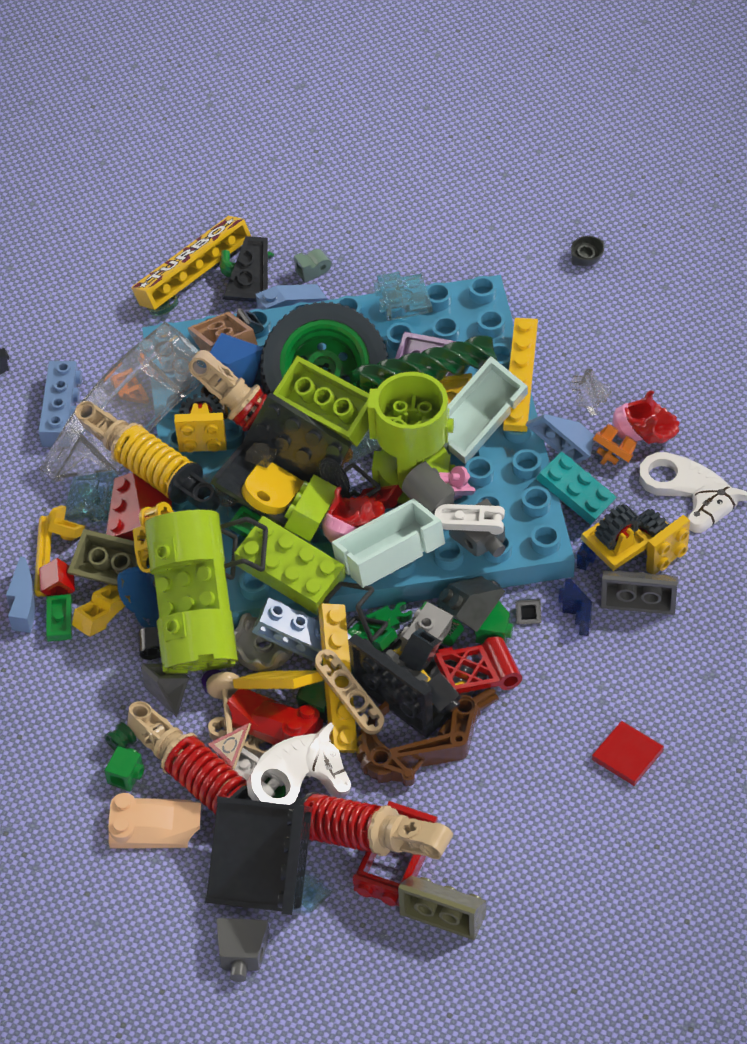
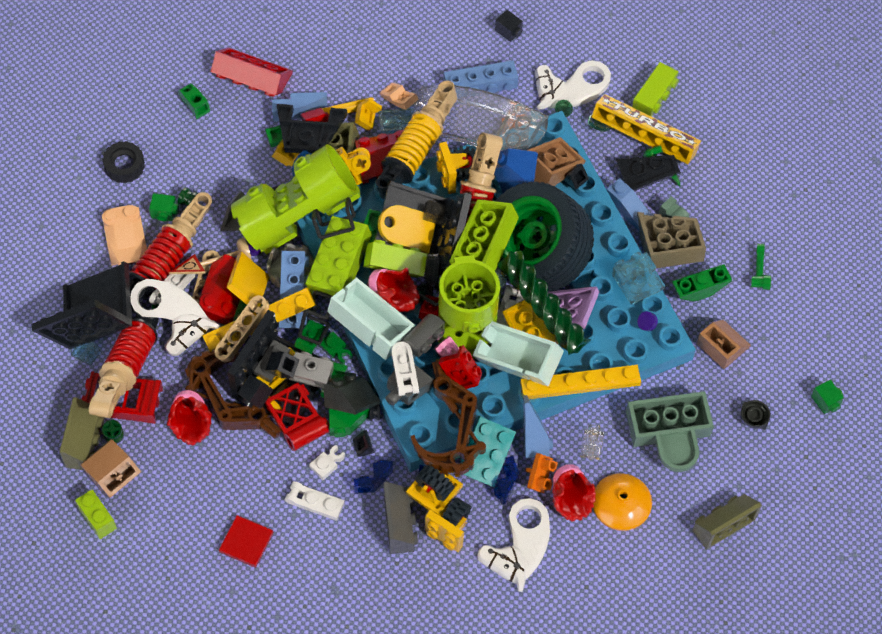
camera: 70 degrees right, 10 degrees up
(34, 787) = (120, 149): none -> black tyre
(47, 492) = (398, 96): none -> light nougat slope
(84, 583) = (308, 135): none -> black wing
(107, 324) = (574, 90): none -> white animal
(131, 333) = (565, 106): none -> clear green plate
(138, 243) = (656, 89): none -> lime brick
(242, 945) = (28, 312): dark grey torso -> none
(347, 268) = (671, 239): none -> dark tan wedge
(414, 251) = (702, 284): none -> green slope
(421, 211) = (760, 280): none -> green brick
(438, 868) = (110, 428): none -> dark green wheel
(450, 777) = (189, 417): none -> red hair
(459, 300) = (647, 321): none -> dark purple tile
(480, 472) = (461, 368): none -> red bracket
(495, 256) = (722, 343): none -> medium nougat slope
(502, 873) = (110, 468): none -> medium nougat slope
(527, 478) = (456, 398): none -> reddish brown piece
(542, 655) = (325, 464): none -> white plate
(557, 905) = (96, 514): none -> lime brick
(583, 187) = (828, 397): none -> green brick
(585, 314) = (672, 425): none -> sand green brick
(591, 673) = (315, 501): none -> white plate
(623, 484) = (506, 485): none -> clear blue slope
(671, 385) = (619, 512): none -> light orange dish
(710, 297) = (726, 520): none -> olive slope

